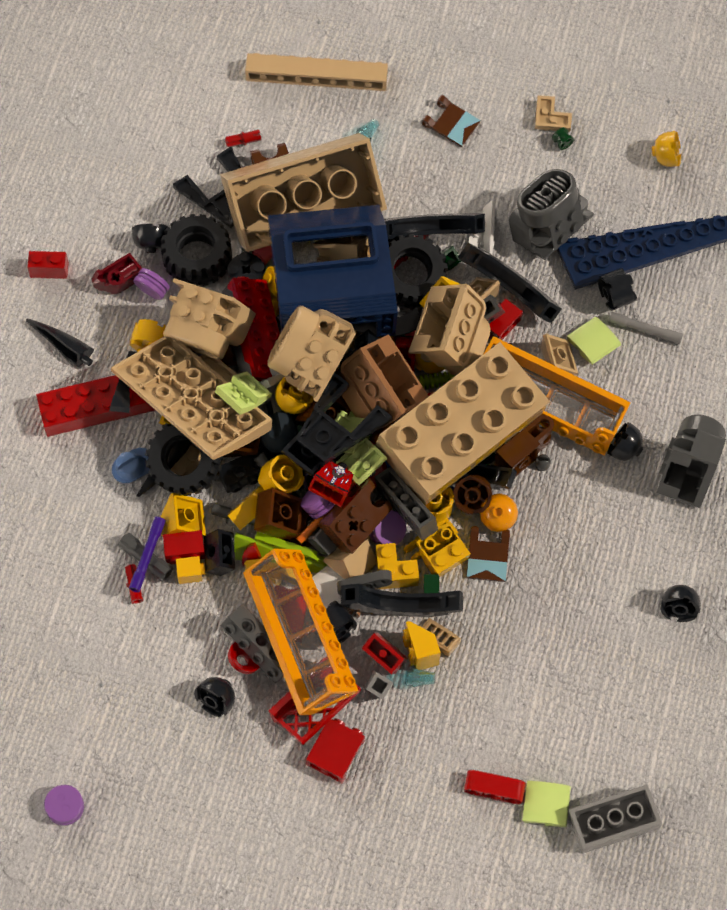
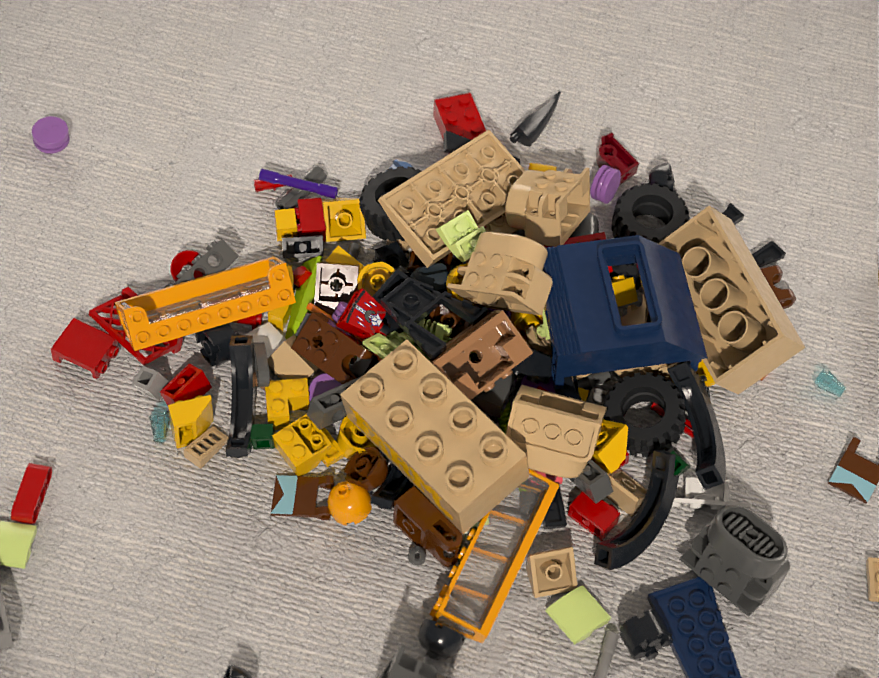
camera: 85 degrees right, 10 degrees down
(48, 264) = (620, 103): red brick -> none
(215, 695) = (150, 246): black cylinder -> none
(243, 138) = (799, 266): red axle -> none
(563, 138) = (854, 589): dark green wheel -> none

